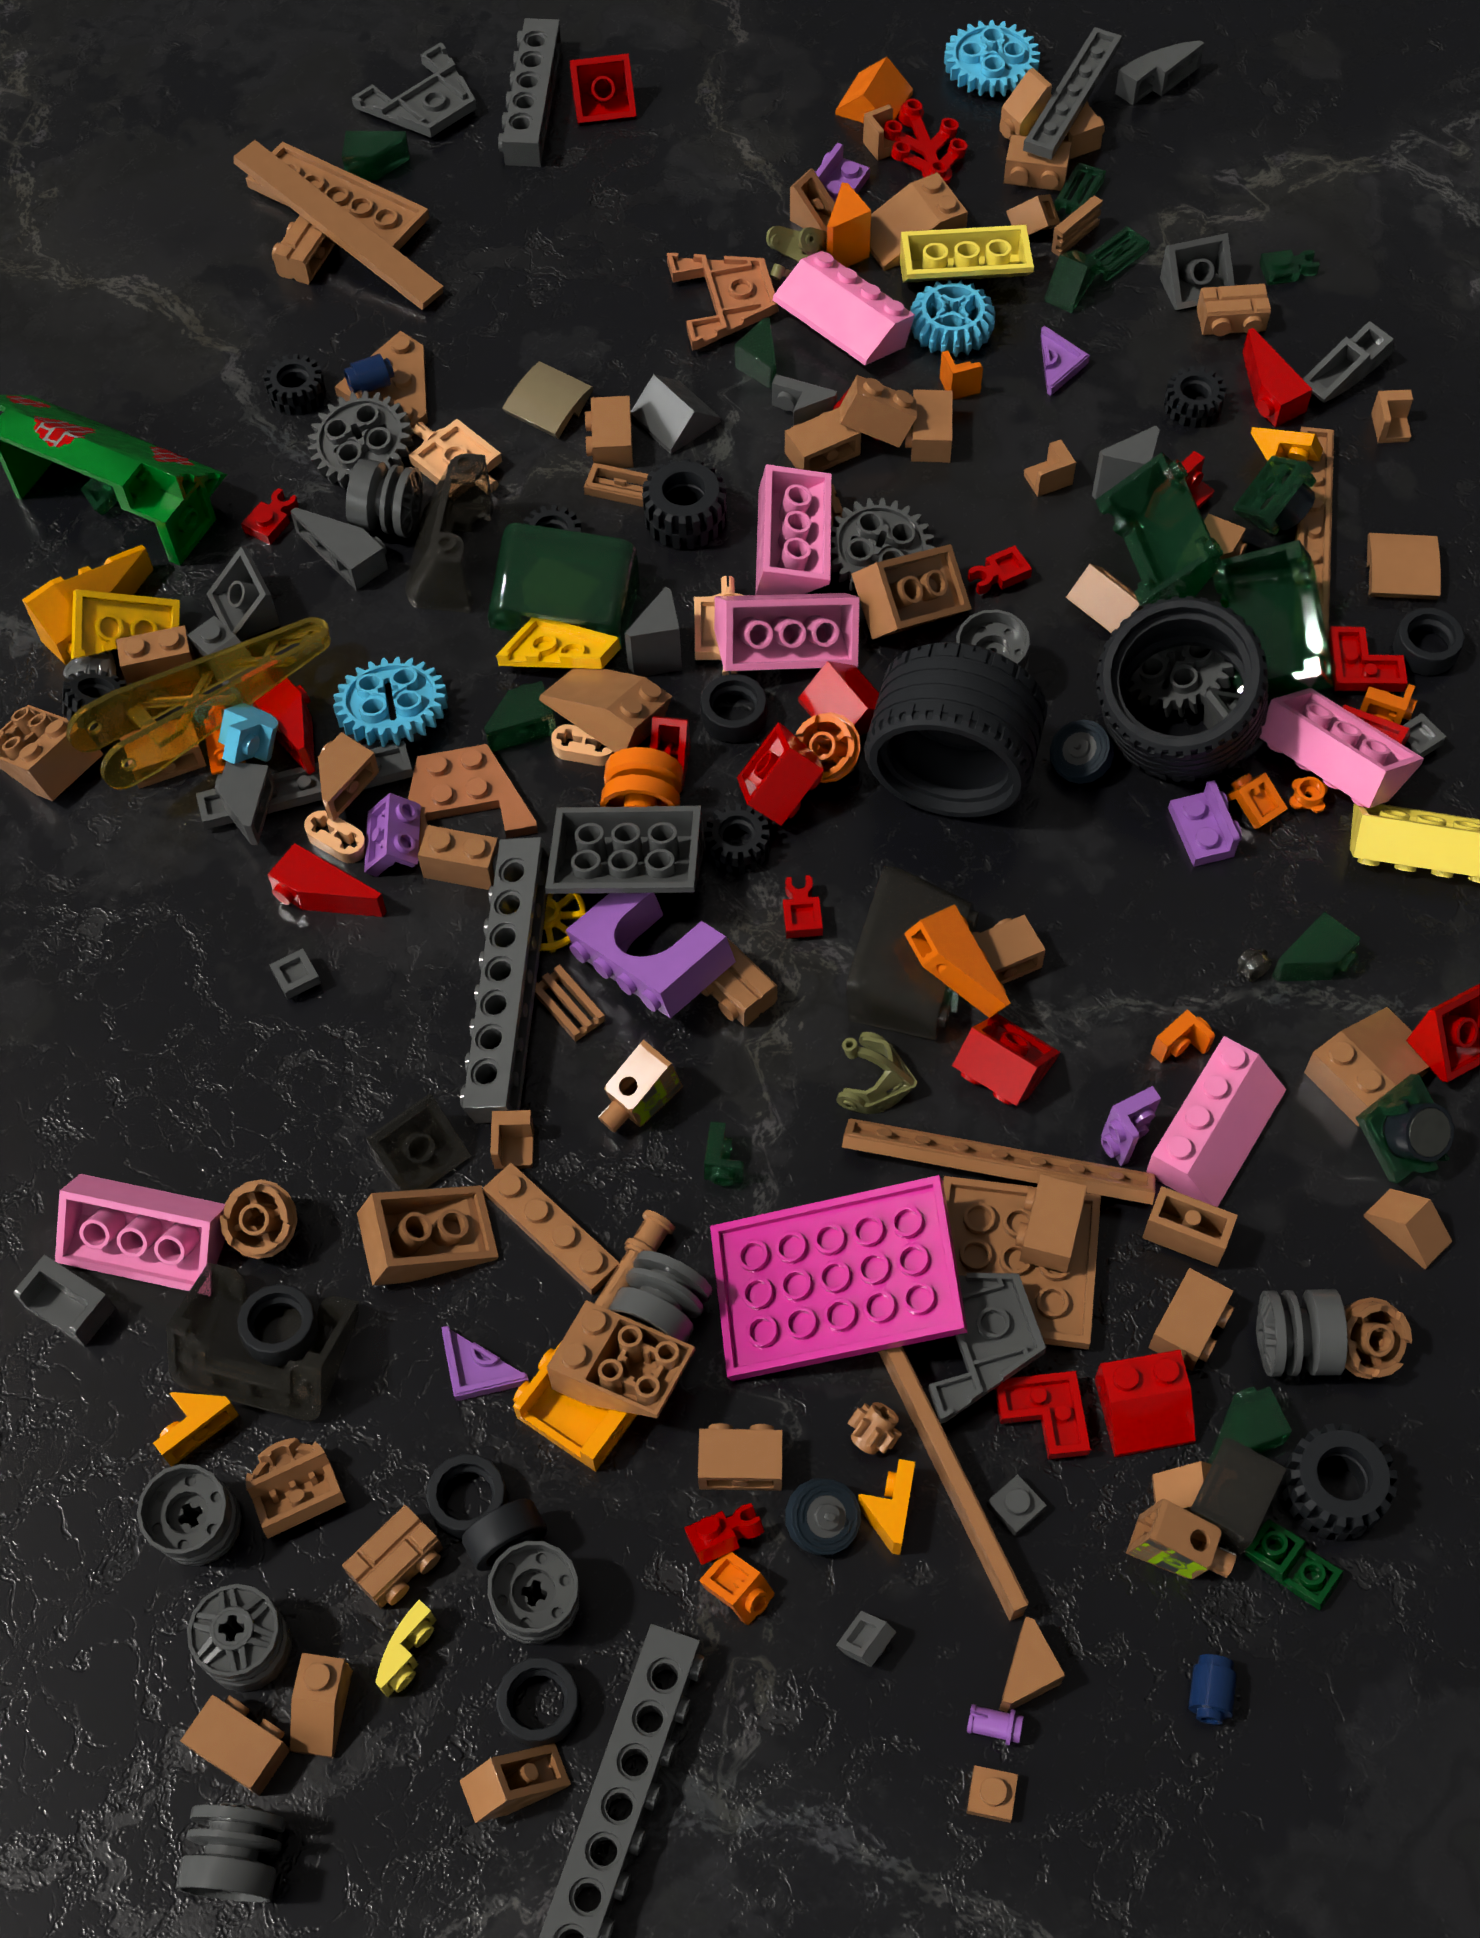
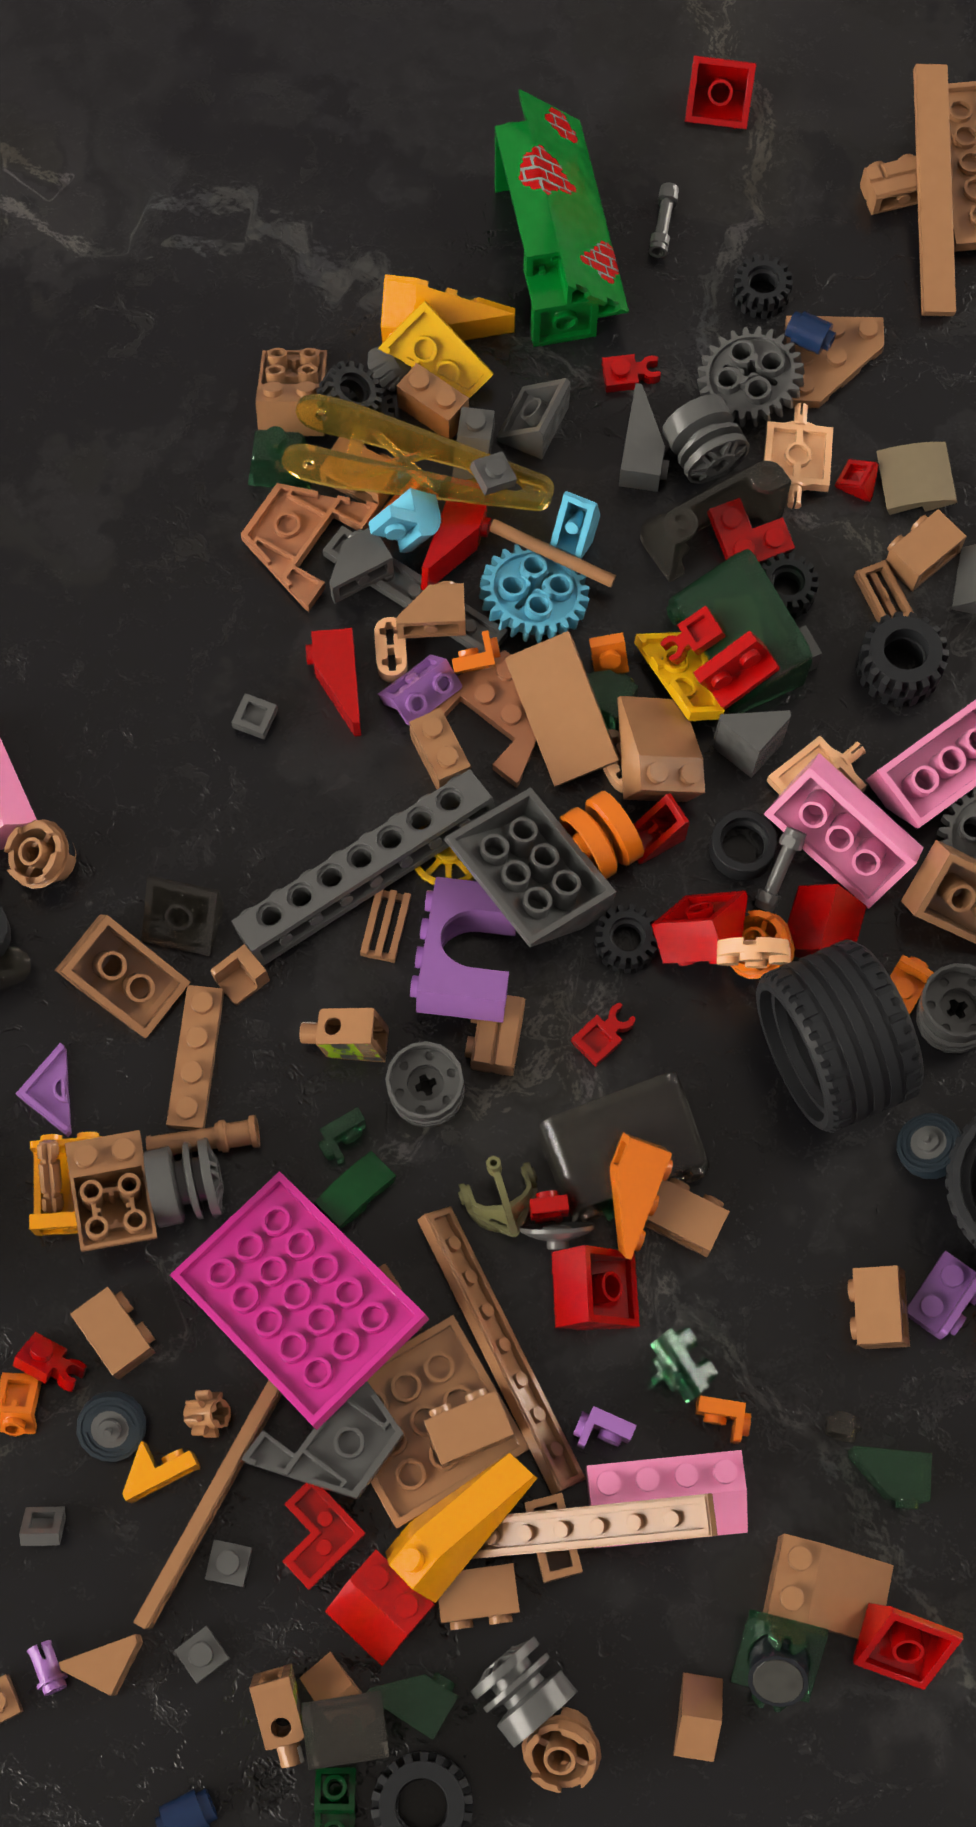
camera: 50 degrees right, 10 degrees up
(87, 801) = (267, 455): none -> clear green torso
(107, 297) = (720, 92): none -> red slope
(156, 836) = (291, 525): none -> nougat wing
(185, 421) = (667, 201): none -> dark grey bar
(271, 644) = (493, 473): none -> dark grey plate
(366, 629) = (575, 524): none -> medium azure slope
(371, 664) = (552, 553): none -> medium nougat bar
(407, 778) = (472, 660): none -> orange bracket
(481, 538) = (737, 534): none -> red plate
(494, 682) = (609, 653): none -> orange bracket
(510, 744) = (562, 709): none -> medium nougat tile
(511, 435) = (858, 479): none -> red slope
(540, 606) = (698, 633): none -> red plate
(558, 1410) = (50, 1176): none -> medium nougat axle
(599, 598) = (737, 669): none -> red bracket
(737, 1038) = (425, 1063): none -> dark grey wheel
(766, 666) = (792, 841): none -> dark grey bar
(775, 1176) = (354, 1189): none -> dark green slope
(837, 741) = (753, 952): none -> light nougat plate
(915, 1037) = (548, 1207): none -> red plate
(943, 1048) = (557, 1233): none -> dark grey dish
(1079, 1582) = (202, 1654): none -> dark grey plate
(1117, 1040) = (677, 1366): none -> clear green hips
(1129, 1294) = (452, 1531): none -> light orange wedge
(1181, 870) = (879, 1307): none -> medium nougat brick
(1197, 1196) = (603, 1526): none -> tile

